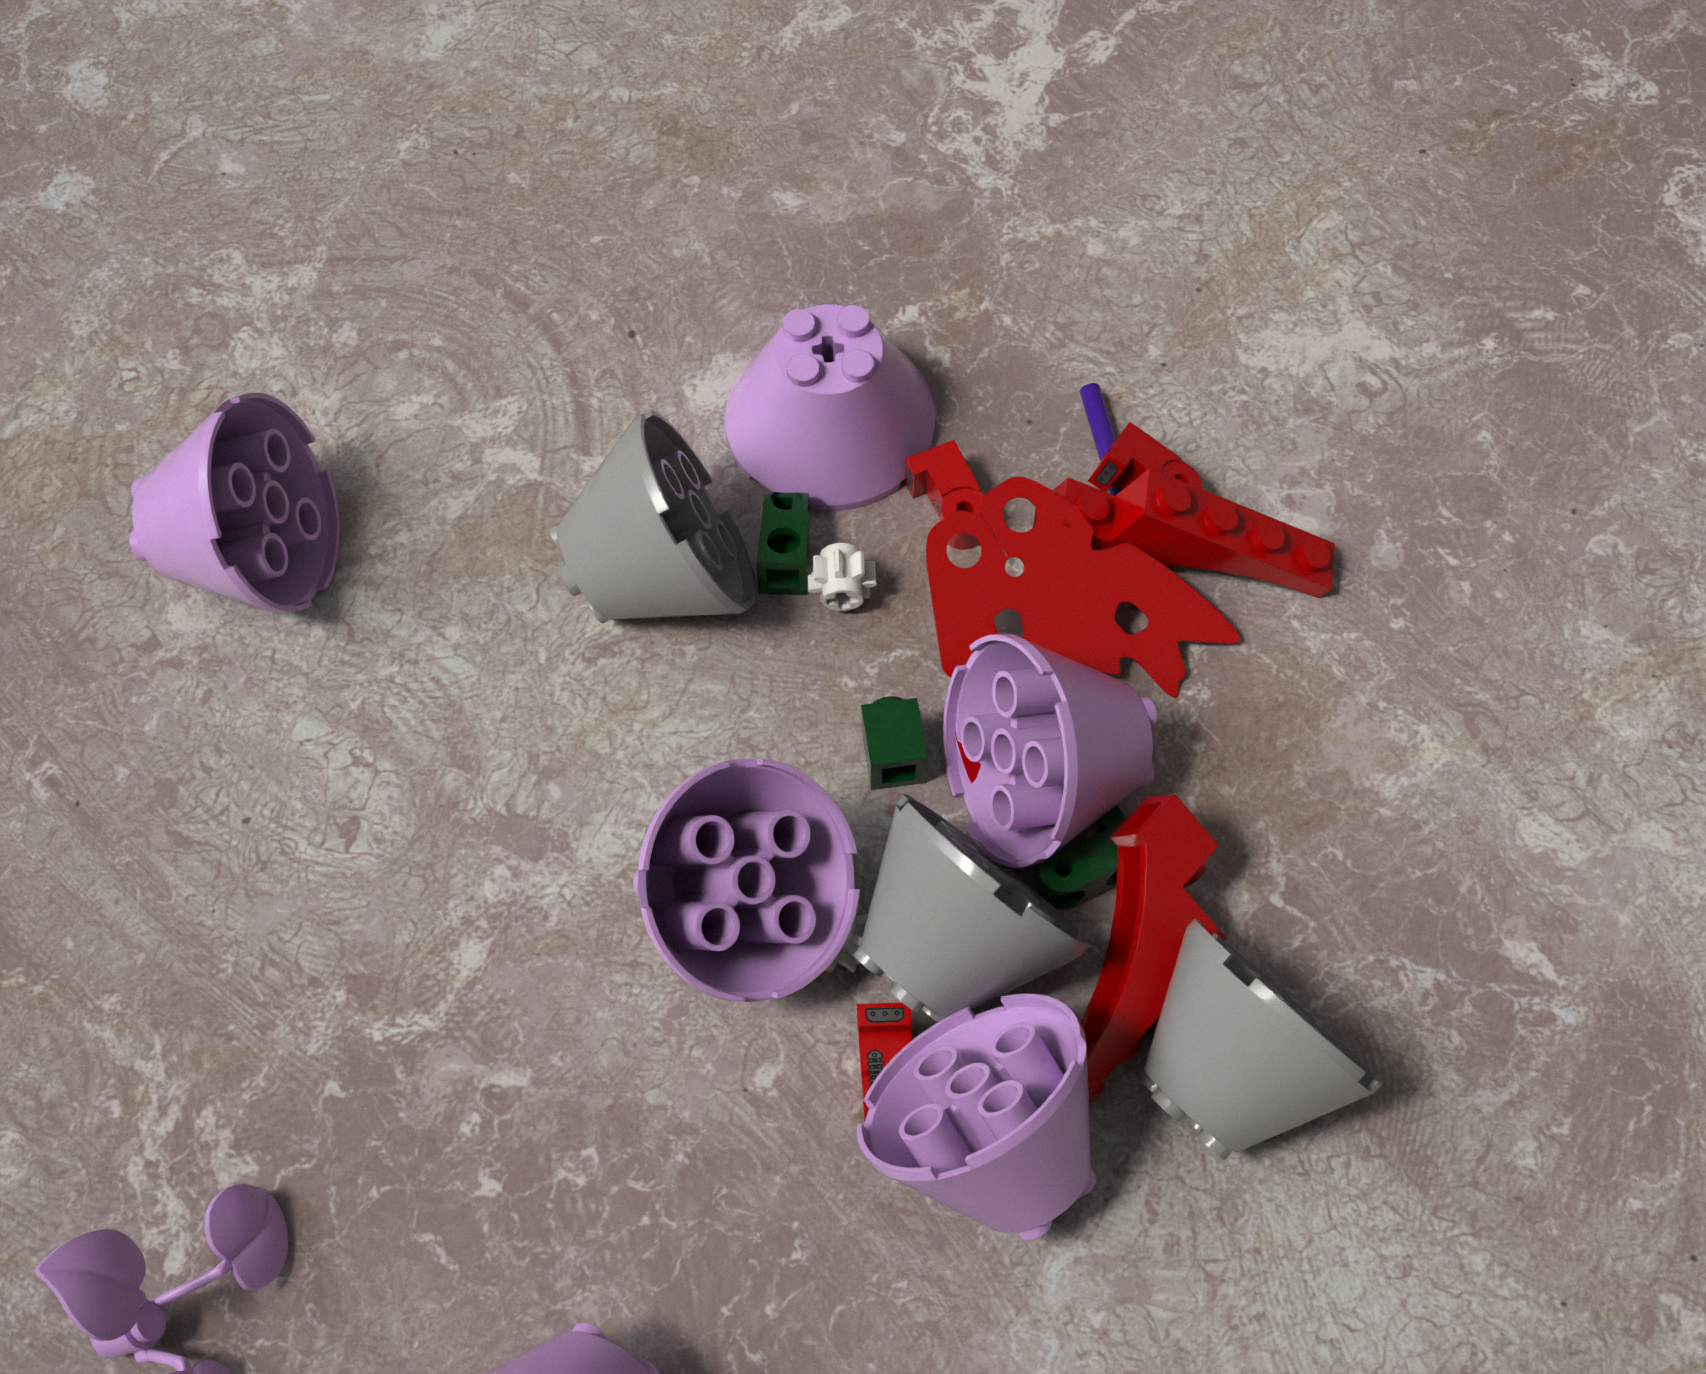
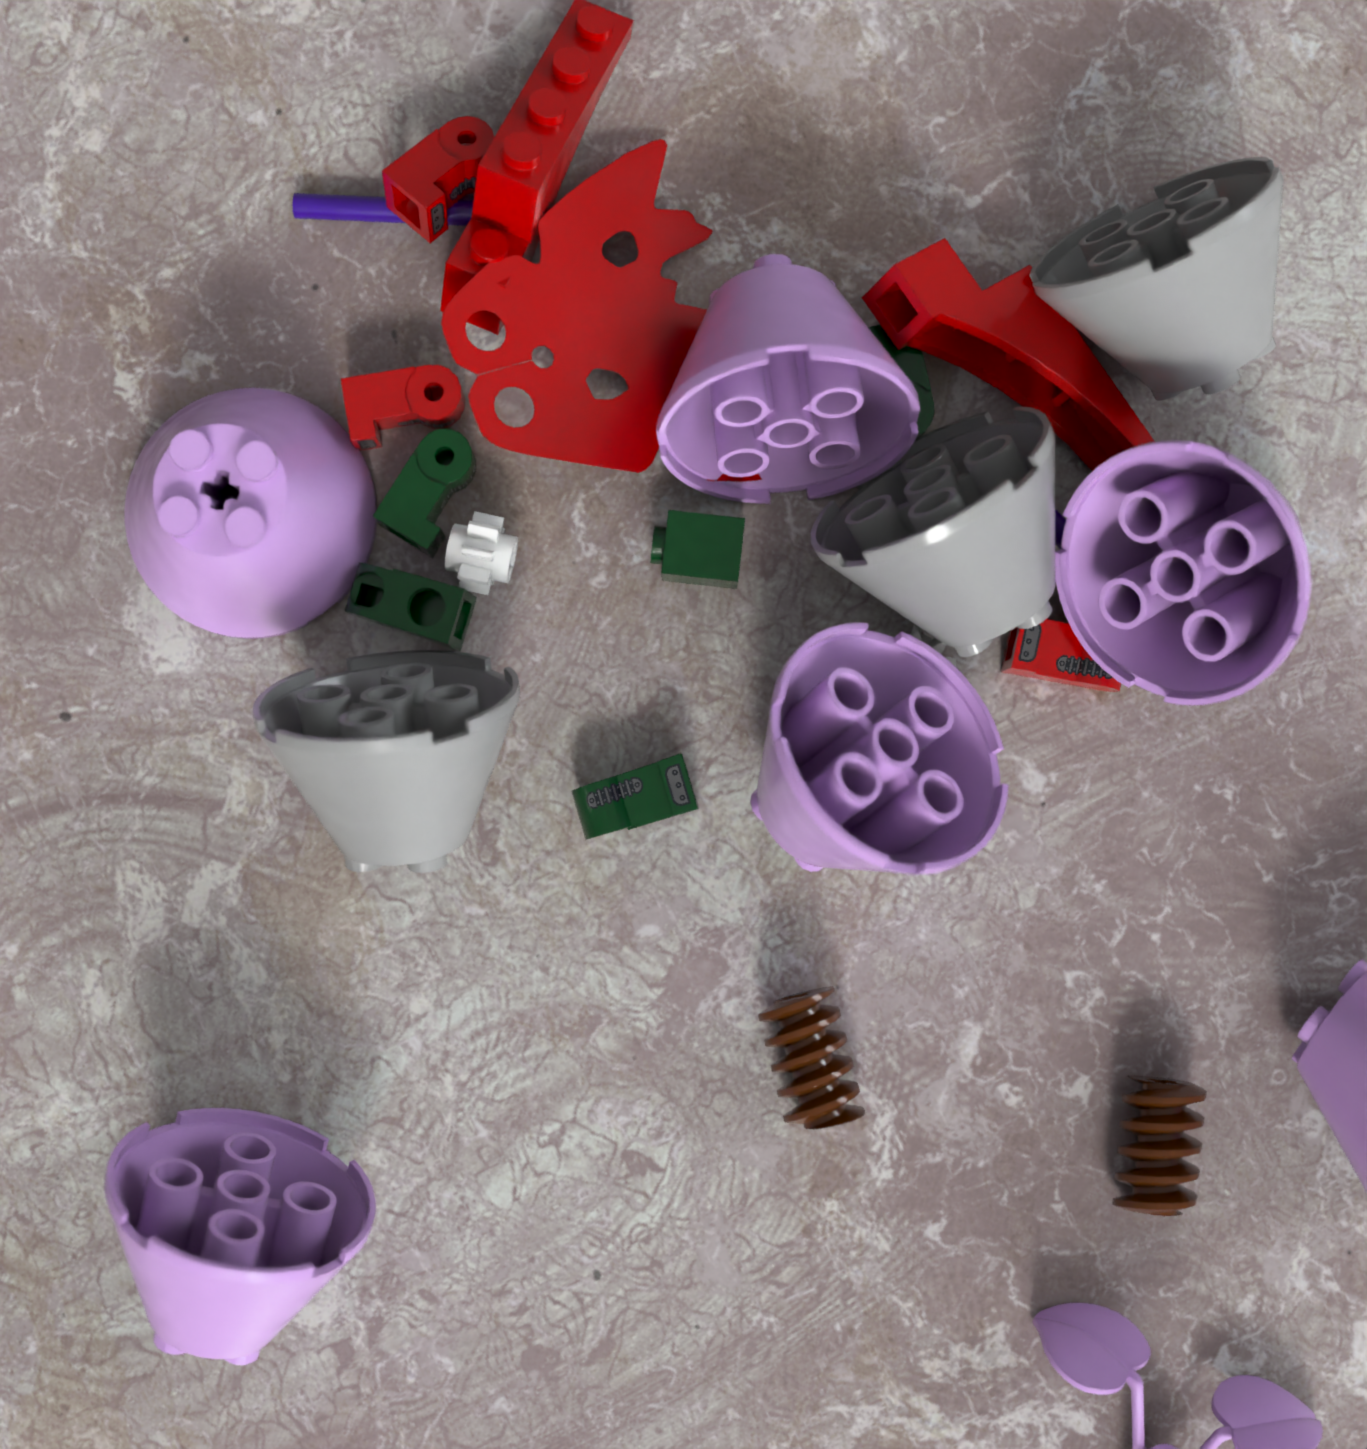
camera: 75 degrees left, 25 degrees up
(446, 1252) = (1160, 1146): none -> reddish brown piece
(467, 929) = (811, 1060): none -> reddish brown piece
(664, 741) = (635, 797): none -> dark green leg
(884, 528) = (423, 488): none -> dark green leg

